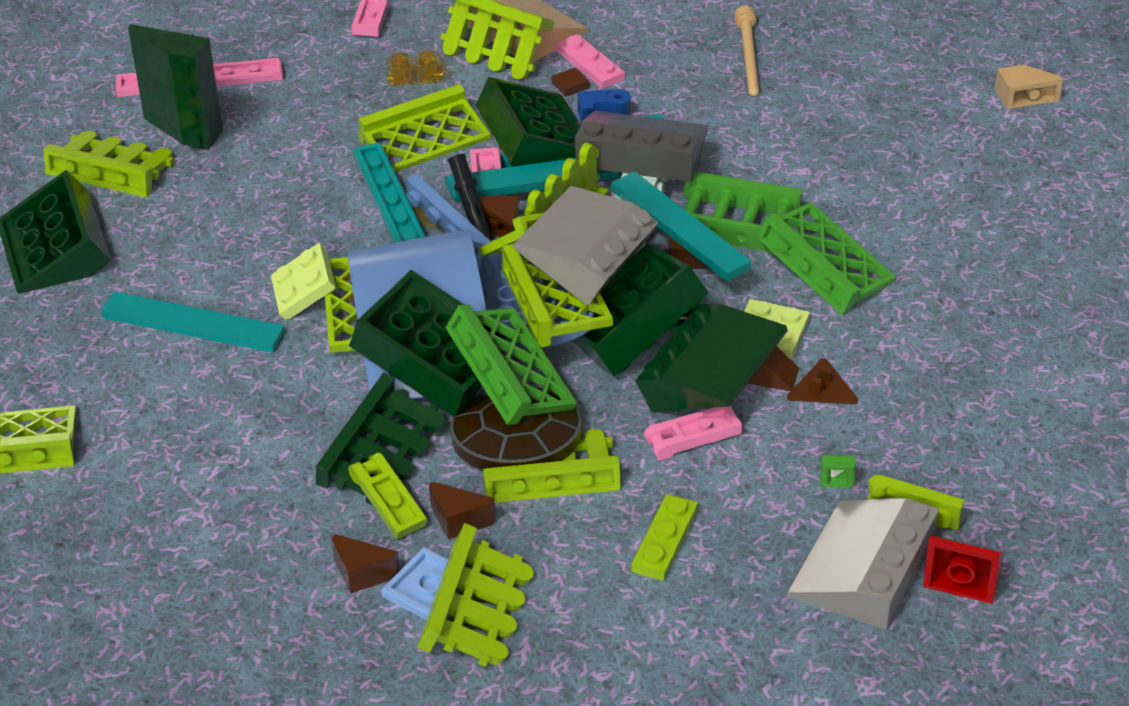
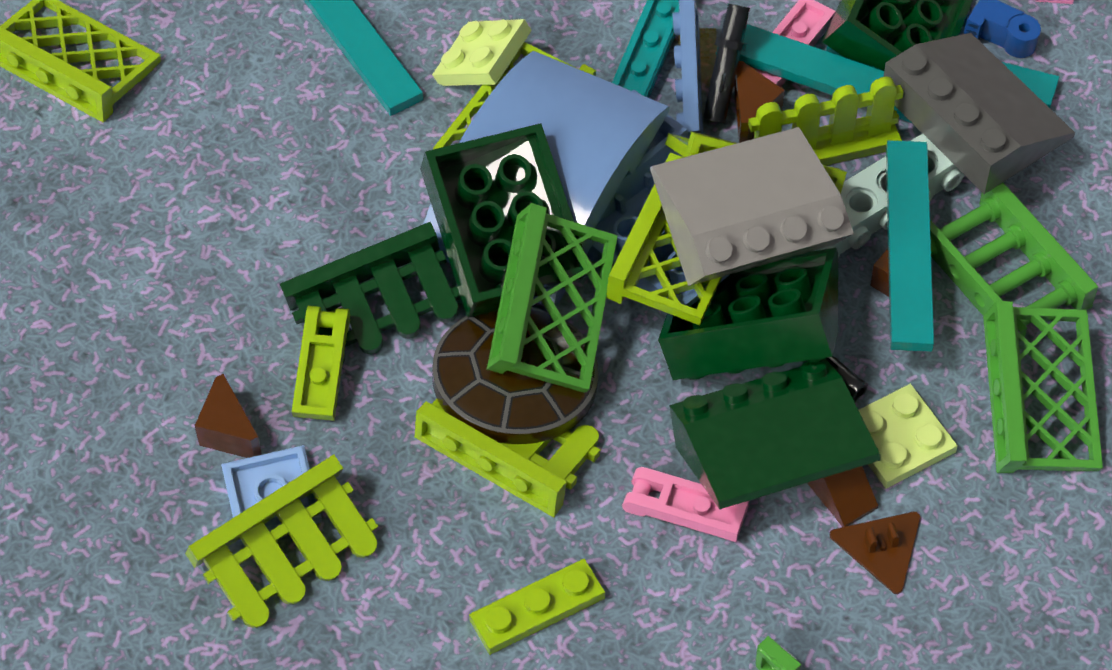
camera: 40 degrees right, 15 degrees up
(458, 506) = (367, 430): reddish brown slope -> none

